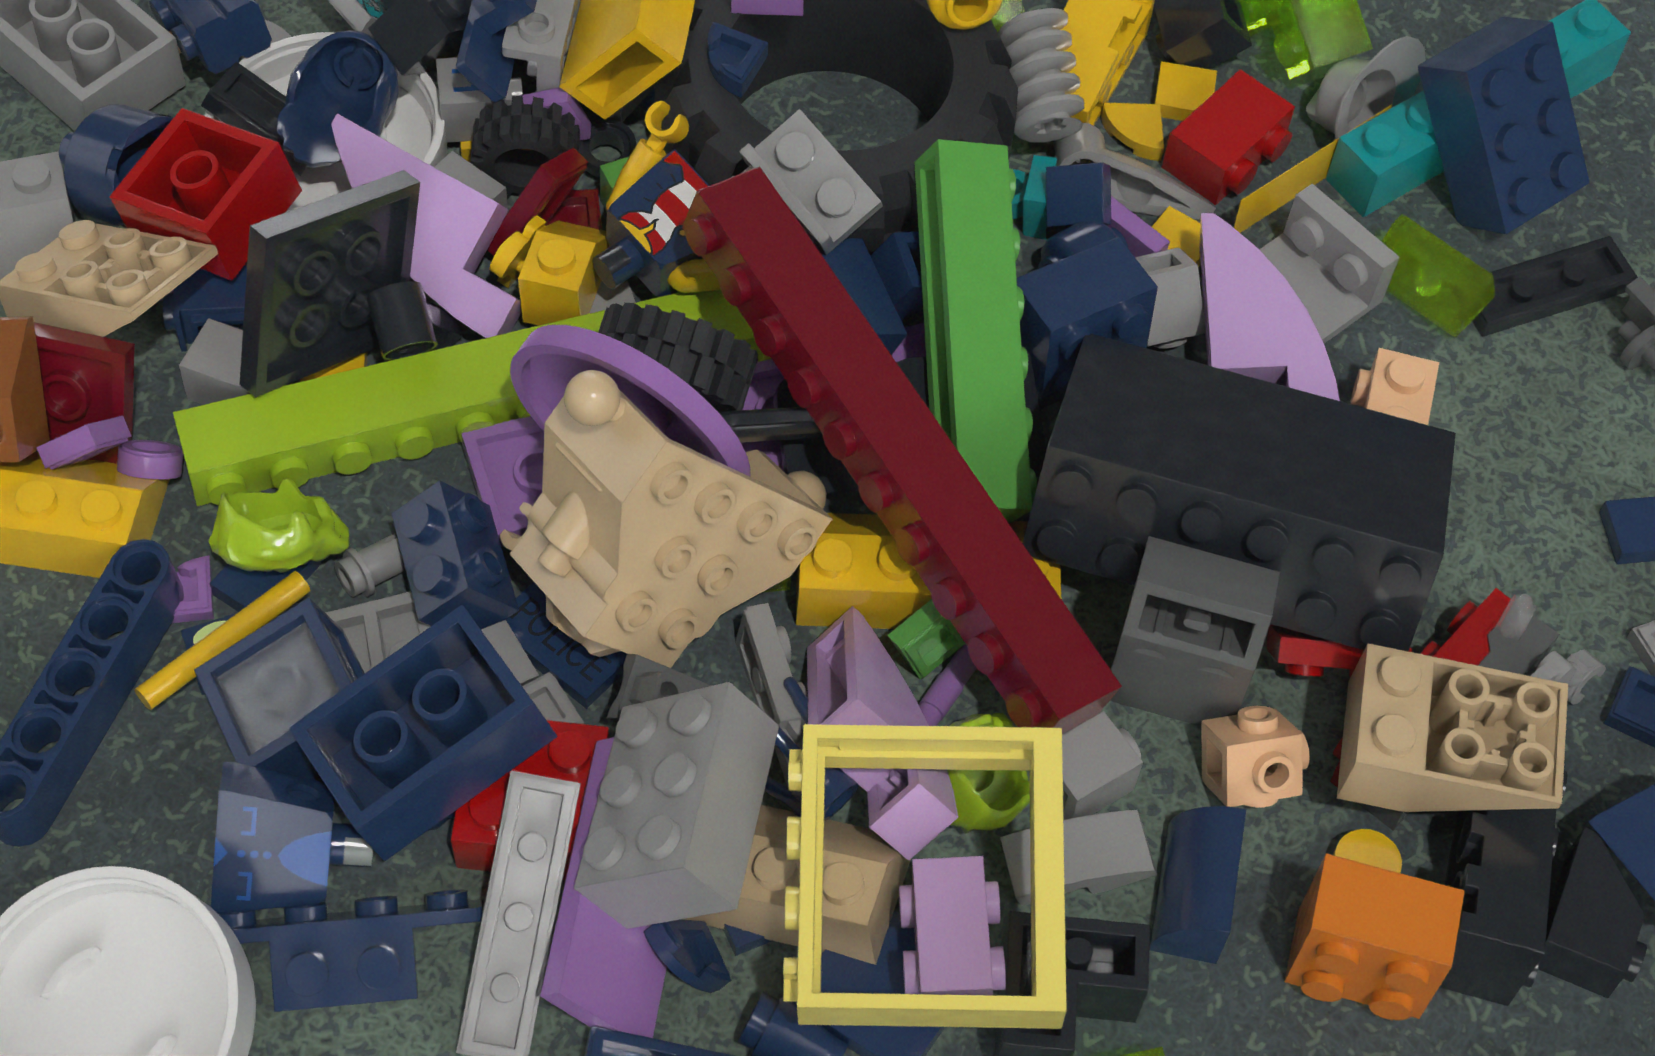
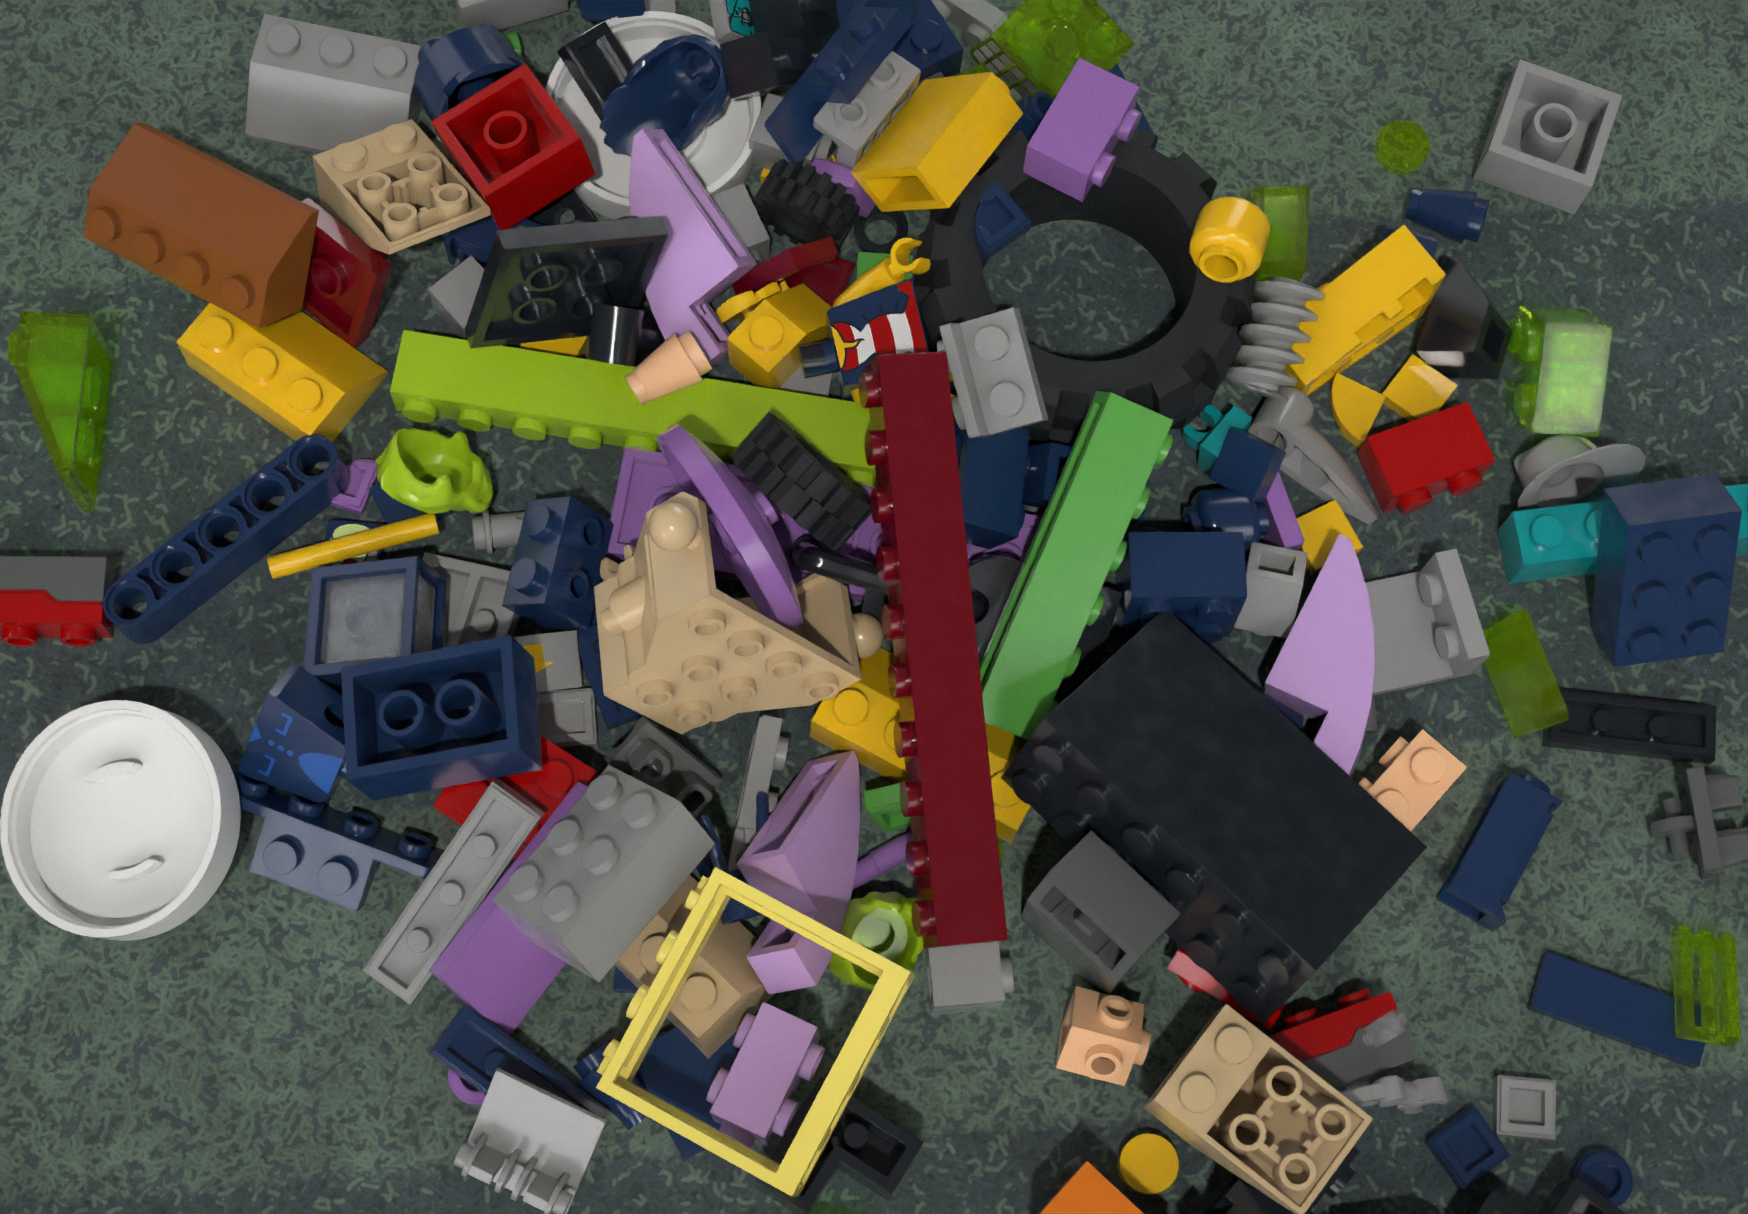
camera: 25 degrees right, 15 degrees up
(84, 443) = (323, 326): medium lavender tile -> none
(150, 459) = (371, 357): medium lavender tile -> none
(475, 329) = (669, 368): none -> light nougat cone
(689, 953) = (572, 985): dark blue tile -> none
(1098, 854) = (931, 1049): light grey slope -> none
(1198, 883) = (997, 1115): dark blue brick -> none
(1287, 185) = (1453, 529): yellow sticker -> none
(1507, 434) = (1499, 849): none -> dark blue window

